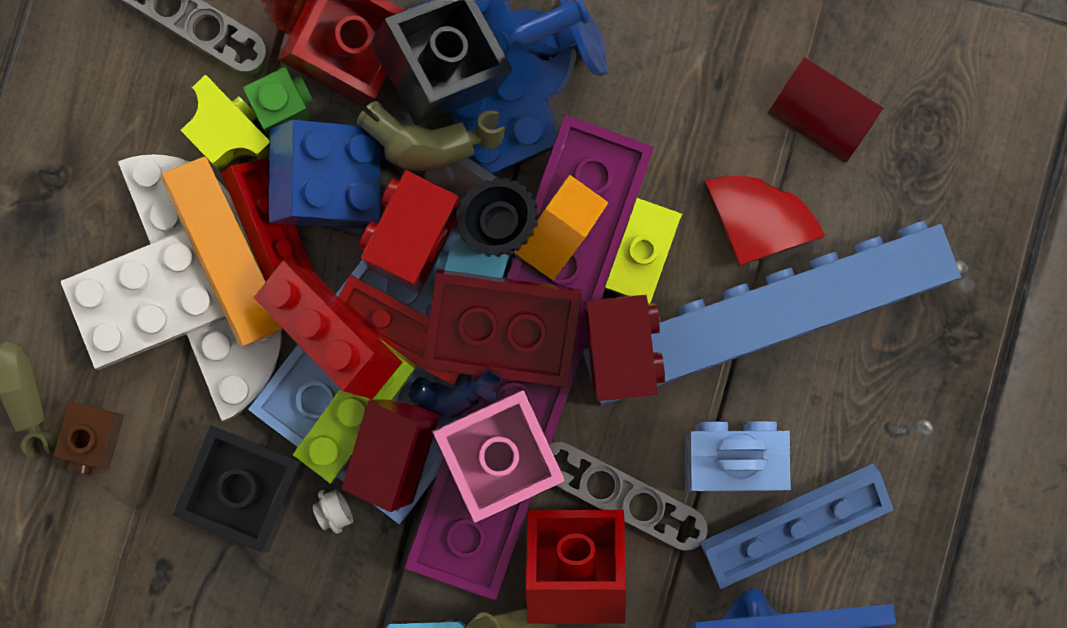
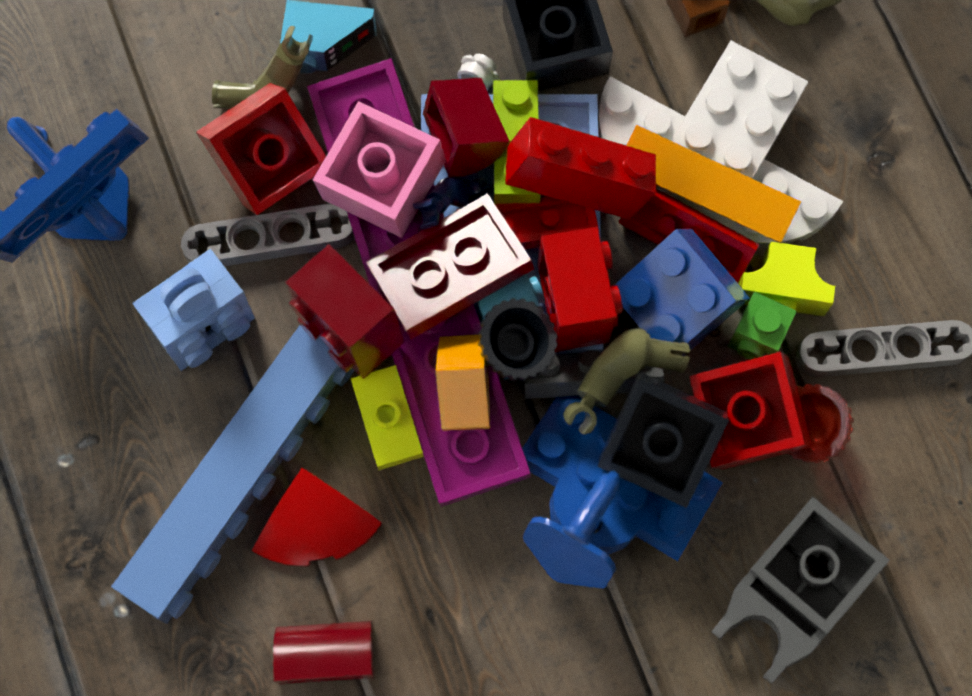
camera: 140 degrees right, 10 degrees down
(797, 526) = (112, 307): medium blue plate -> none

